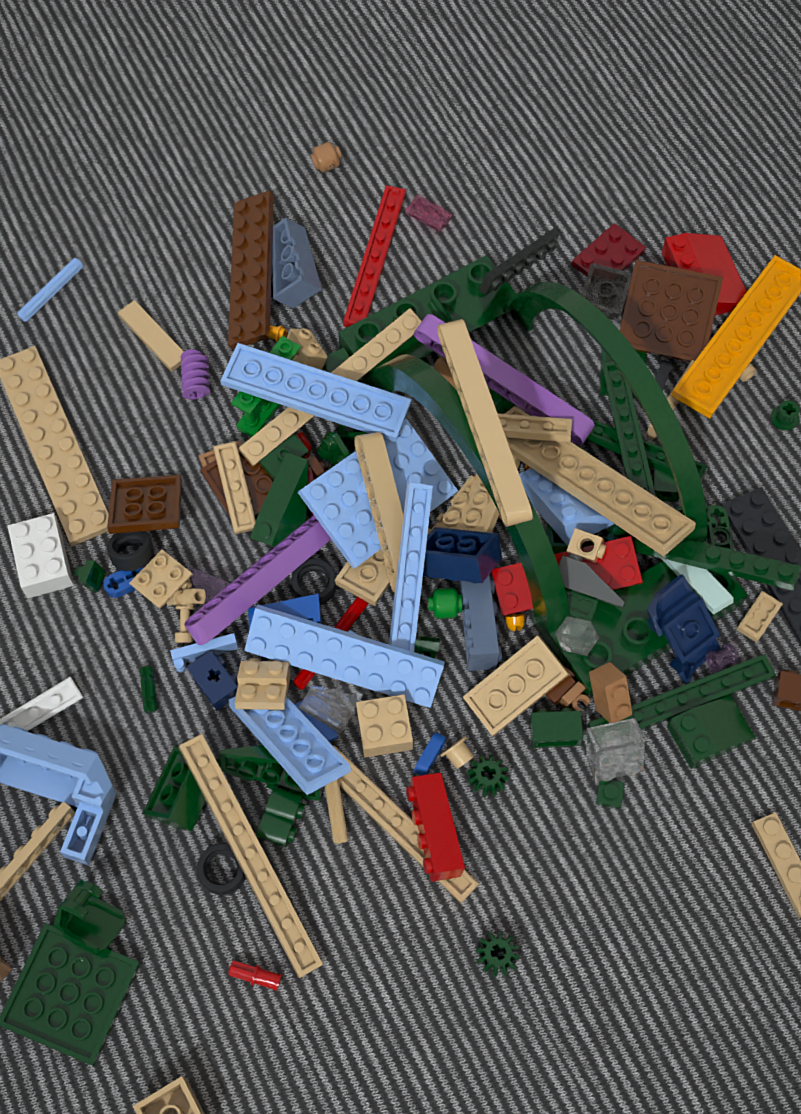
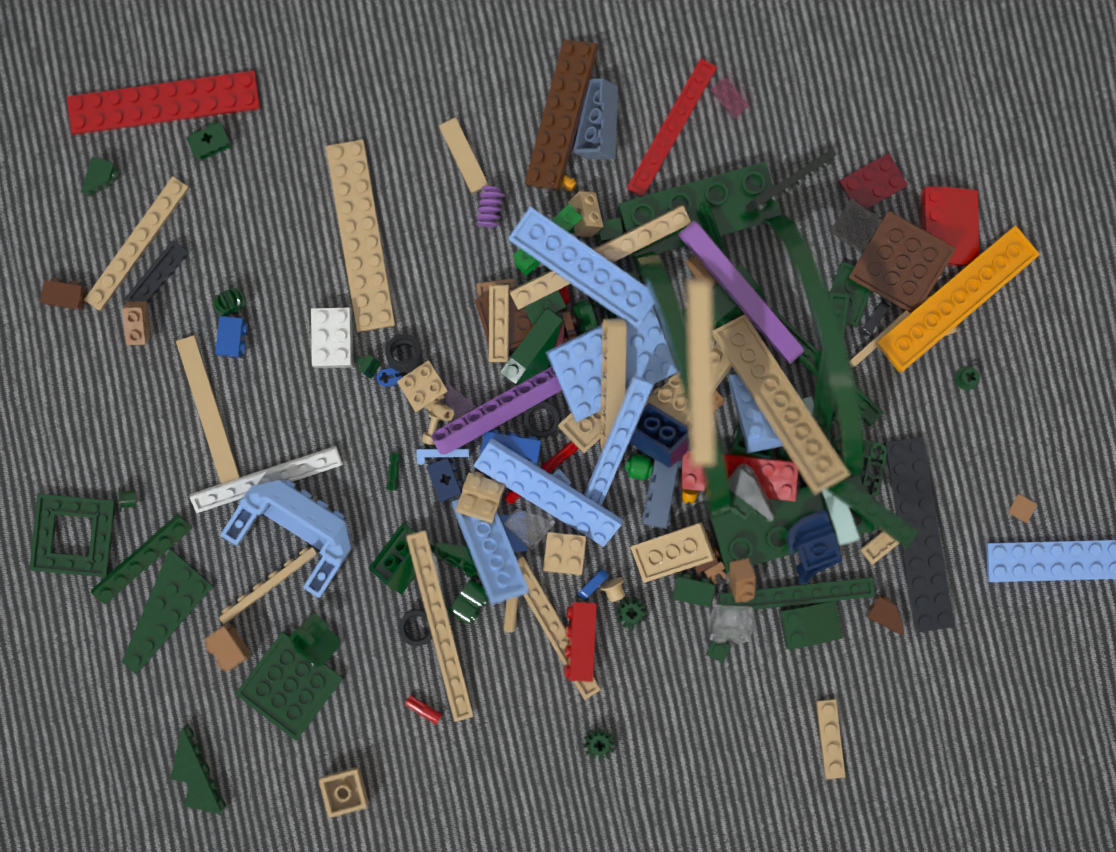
camera: 15 degrees right, 20 degrees up
(50, 289) = (386, 85): light blue axle -> none
(145, 504) = (423, 317): reddish brown plate -> none
(326, 157) = (655, 15): medium nougat head -> none
(427, 644) = (615, 496): dark green tile -> none
(536, 427) = (746, 342): tan plate -> none
(576, 636) = (729, 531): clear brick -> none
(578, 538) = (751, 465): tan brick -> none
(722, 657) = (838, 570): clear purple bush -> none

